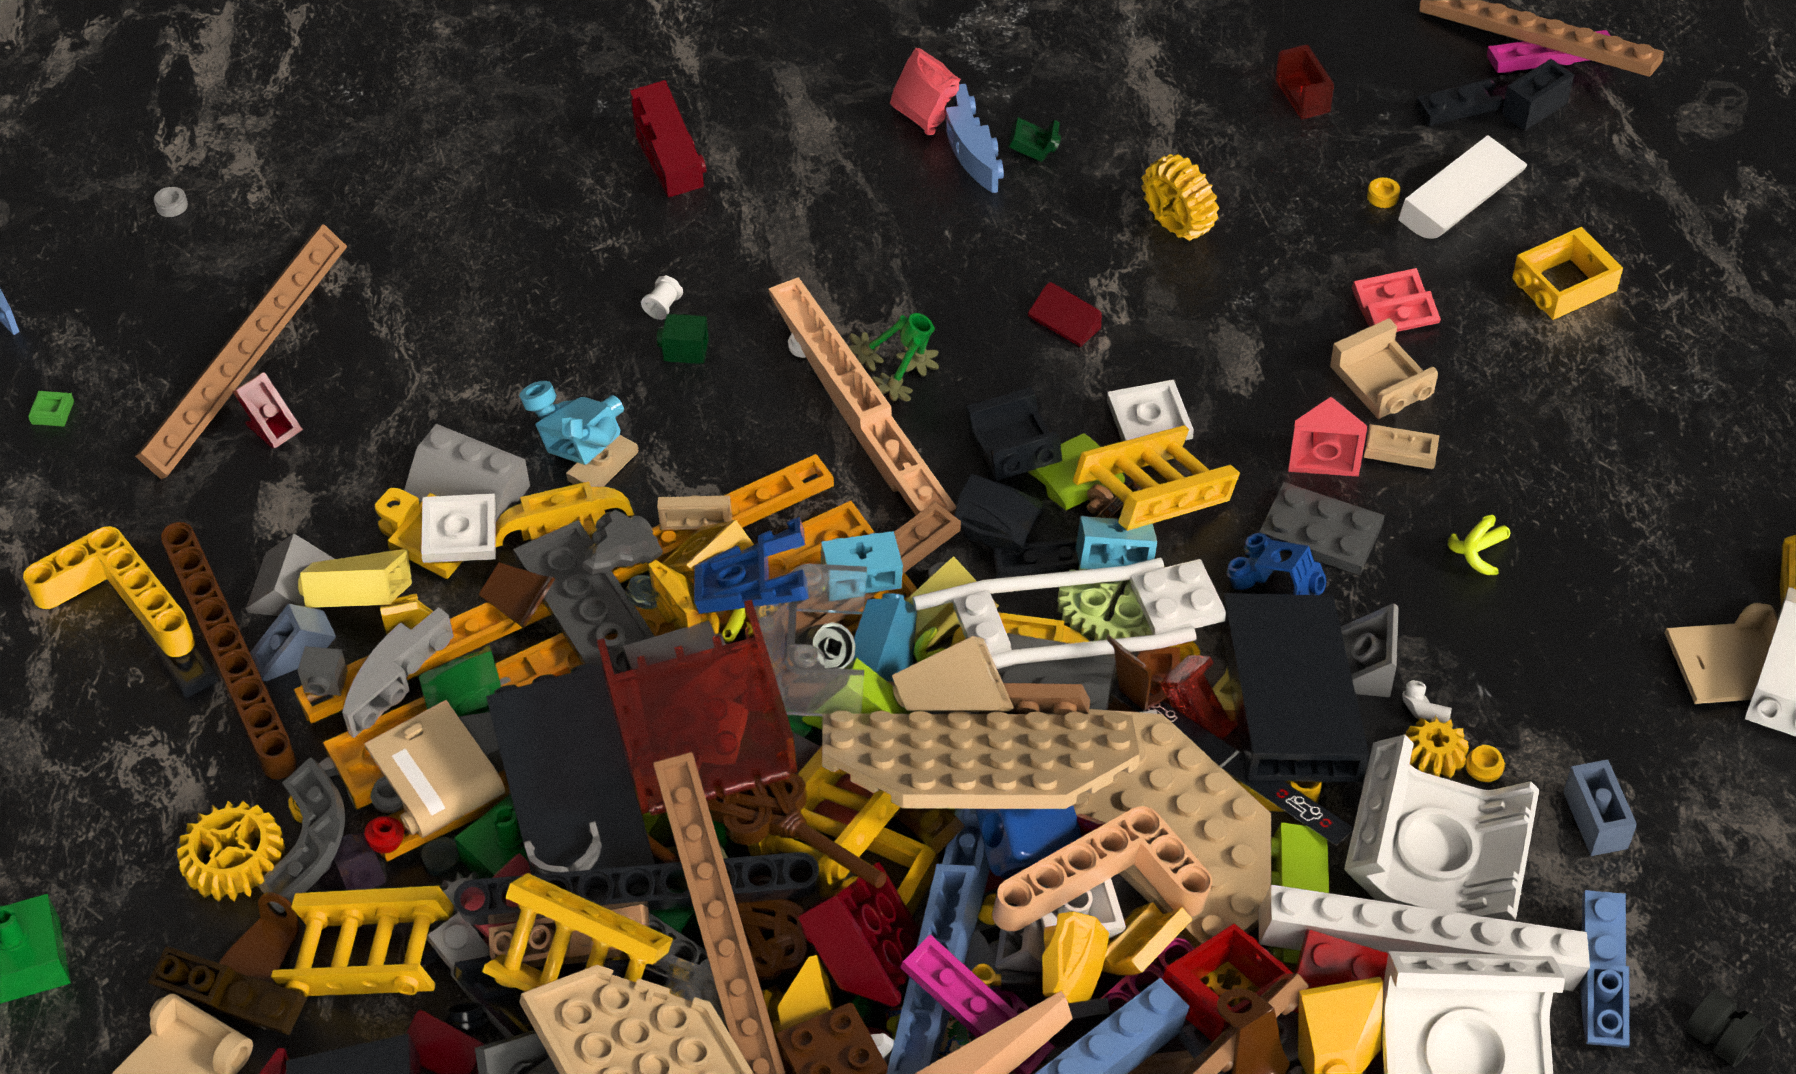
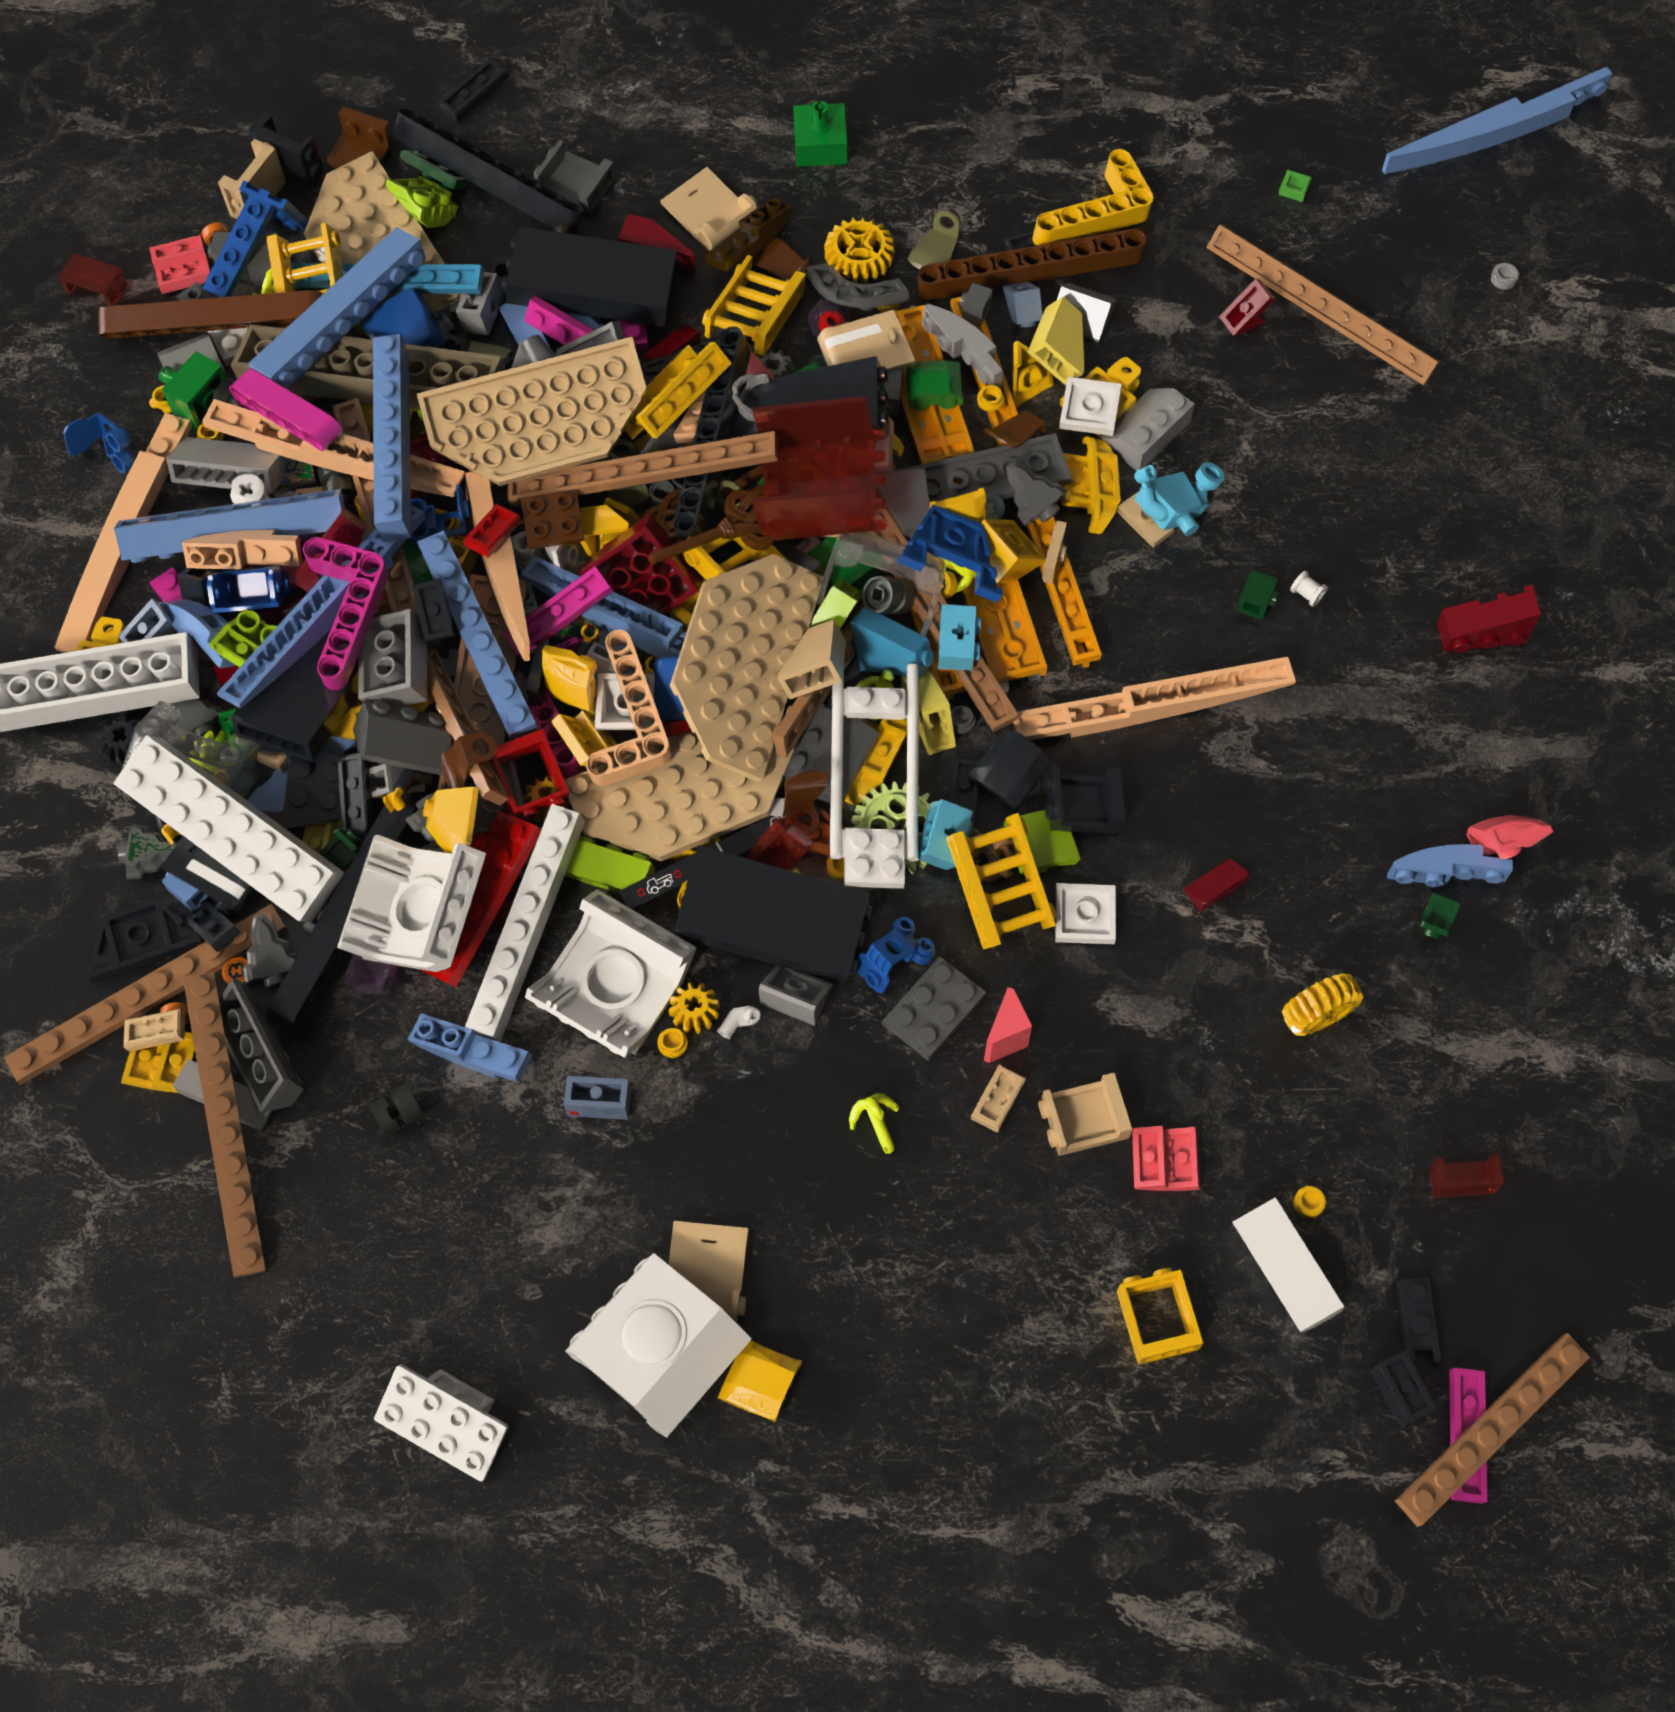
camera: 105 degrees right, 15 degrees up
(211, 768) = (938, 243): none -> olive piece
(472, 621) = (990, 392): none -> yellow plate
(914, 336) = (1193, 738): plant -> none

